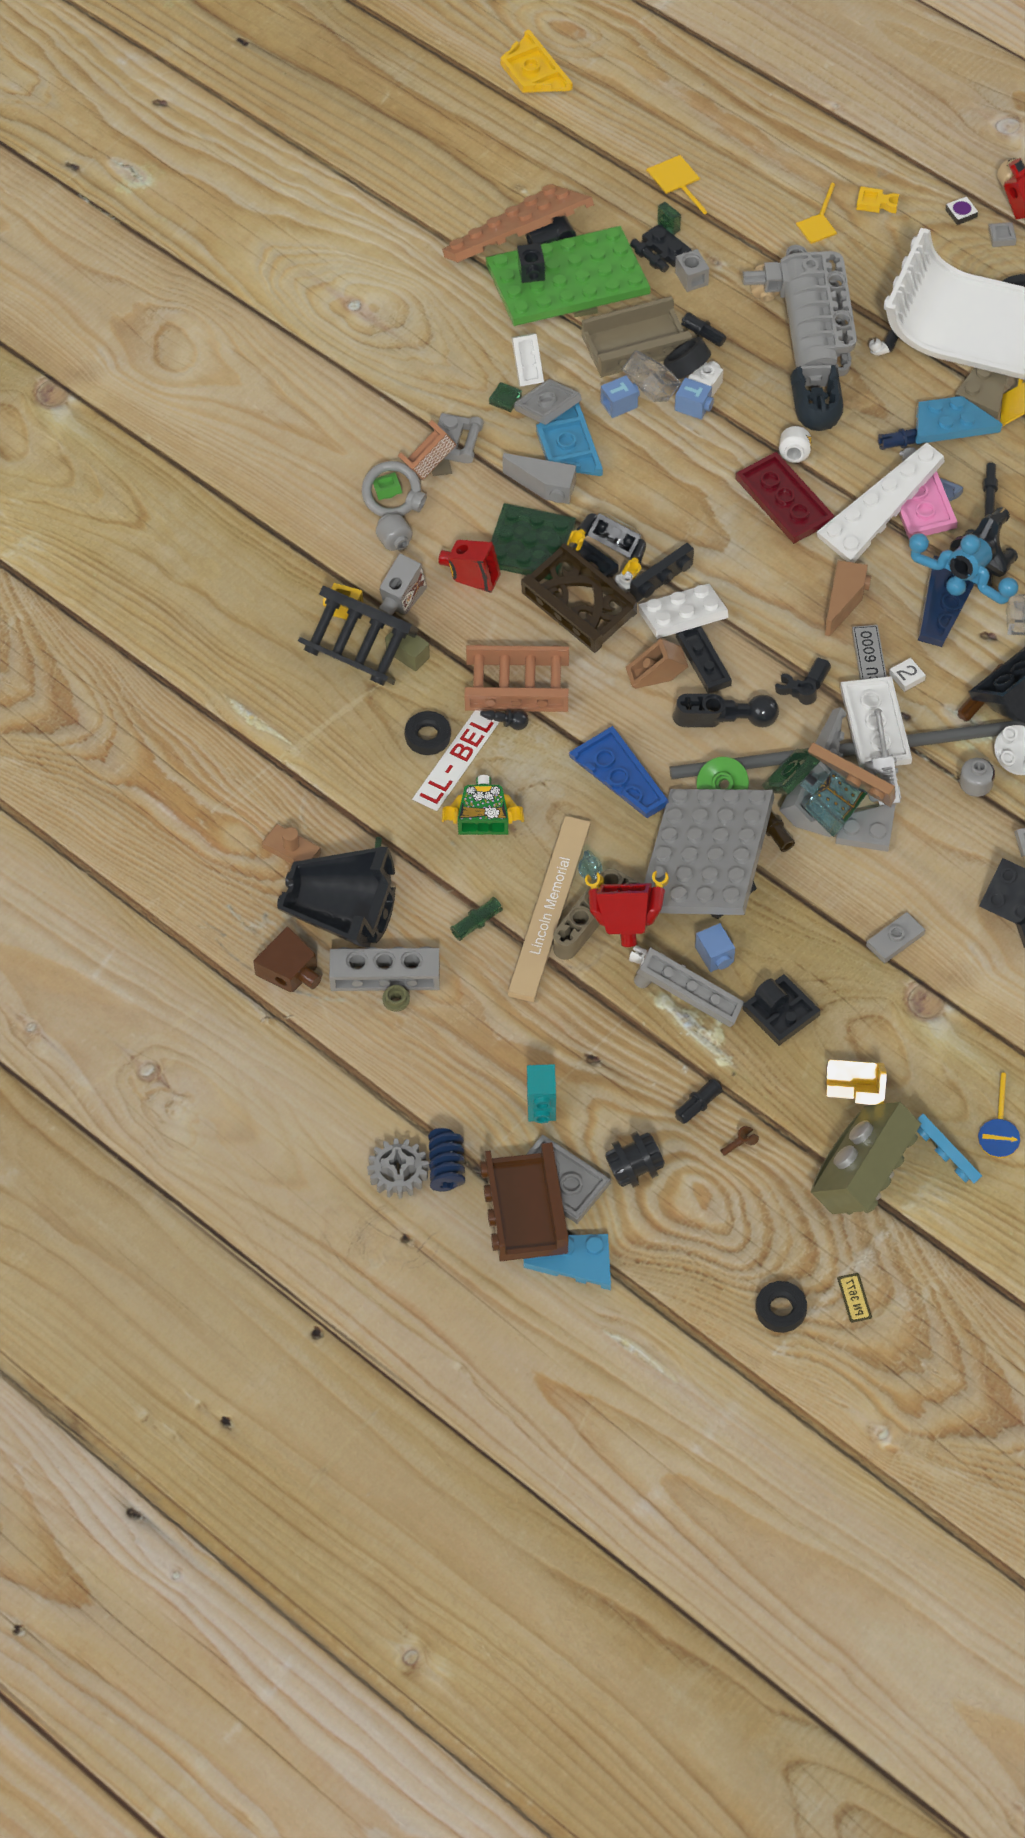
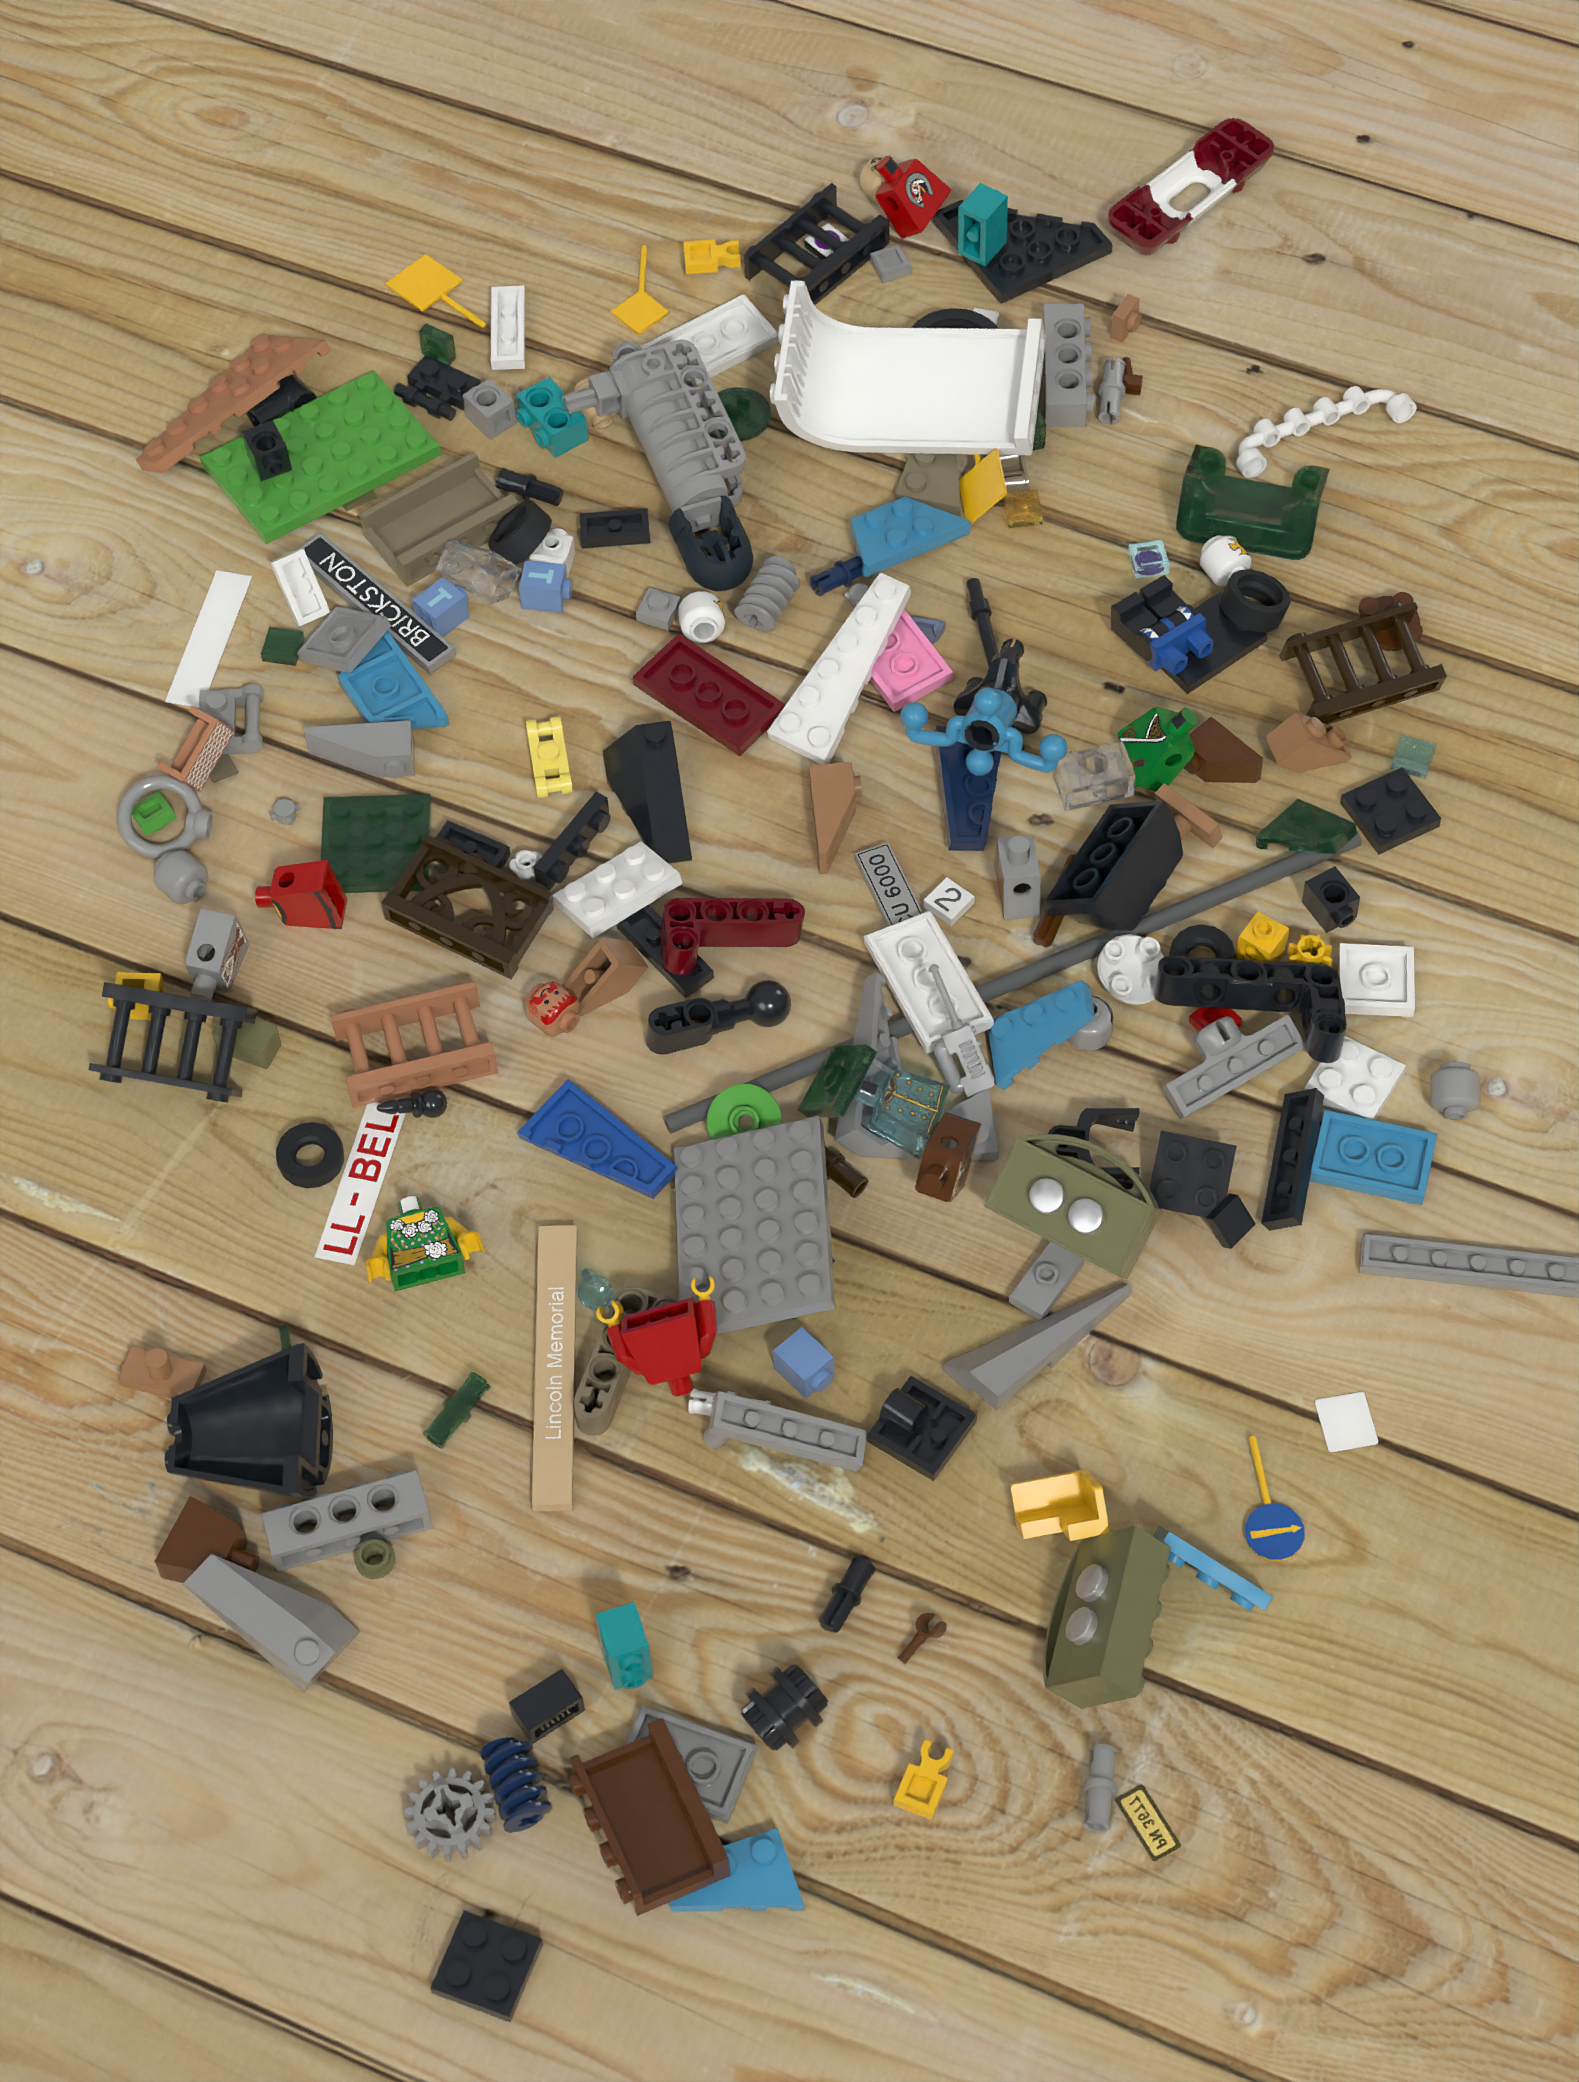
camera: 15 degrees left, 0 degrees up
(323, 1021) = (280, 1623): none -> light grey wedge
(394, 1267) = (486, 1966): none -> black plate
(457, 379) = (208, 638): none -> white sticker
(475, 506) = (285, 811): none -> light grey piece
(480, 1118) = (547, 1706): none -> black piece
(533, 67) = (191, 179): yellow wing -> none
(572, 376) = (369, 596): none -> tile
(613, 534) = (492, 806): torso -> none
(616, 678) = (552, 1008): none -> nougat head
(663, 513) = (549, 757): none -> light yellow plate
(713, 1233) = (923, 1785): none -> yellow plate
(721, 218) = (508, 327): none -> white plate
(725, 546) = (647, 781): none -> black wedge
(730, 290) = (544, 414): none -> teal brick
(748, 650) = (725, 923): none -> dark red beam
(754, 371) = (614, 528): none -> black plate
(767, 432) = (658, 609): none -> light grey plate
(785, 1290) = (1045, 1891): black tyre -> none
(805, 690) = (818, 958): black bar -> none
(828, 1266) = (1100, 1788): none -> light grey pin
(845, 440) = (768, 594): none -> light grey piece
(849, 847) = (946, 1169): none -> reddish brown torso
(855, 775) = (926, 1066): medium nougat wing -> none
(855, 983) = (1010, 1362): none -> light grey wedge
(867, 313) = (746, 410): none -> clear green piece
(869, 258) = (724, 335): none -> white tile
(879, 348) = (782, 452): arm -> none
(929, 889) = (1075, 1202): none -> olive piece
(937, 770) = (1033, 1028): none -> dark azure wing
(940, 852) = (1112, 1117): none -> black piece
(957, 230) = (828, 272): none -> black fence
(959, 660) = (1017, 864): none -> light grey torso

